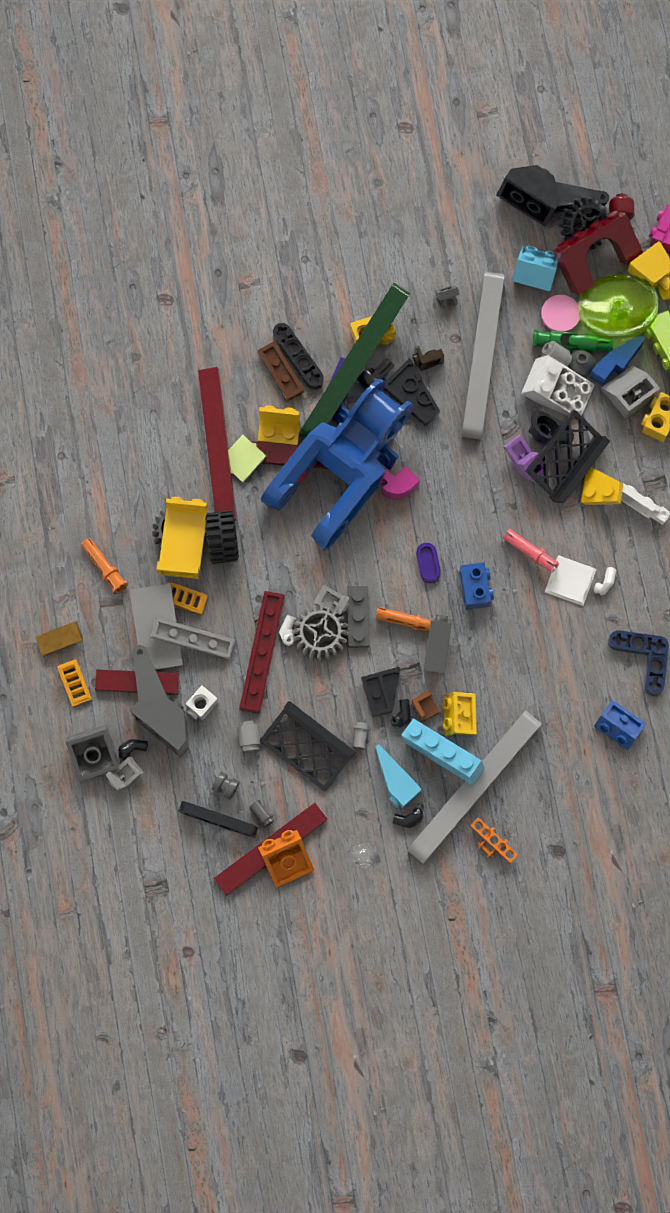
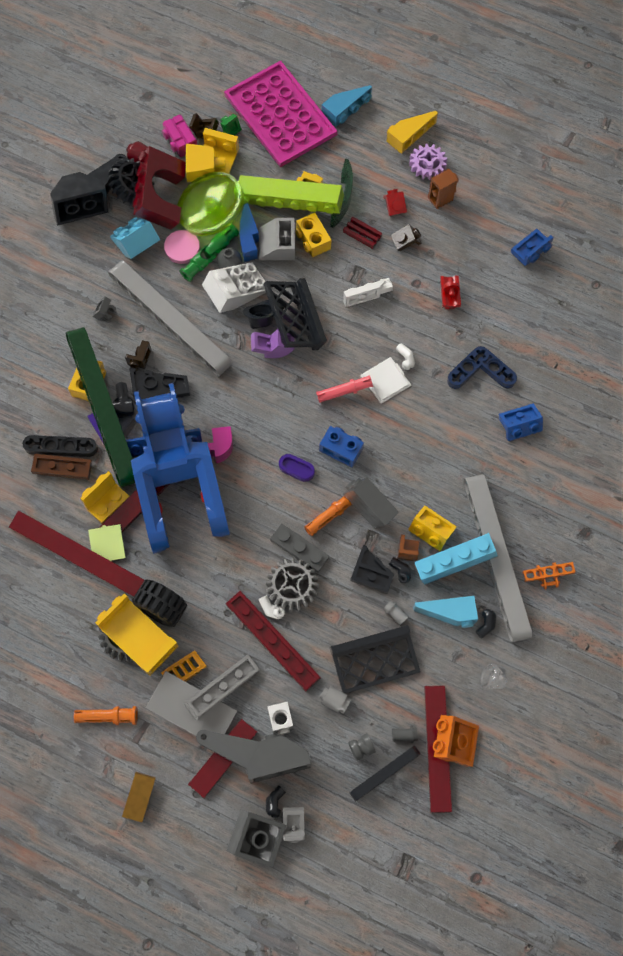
camera: 55 degrees left, 5 degrees down
(69, 666) = (167, 808): light orange slope -> none
(329, 597) = (270, 557): light grey bracket -> none
(557, 352) = (209, 265): light grey brick -> none
(601, 489) = (336, 309): yellow wing -> none

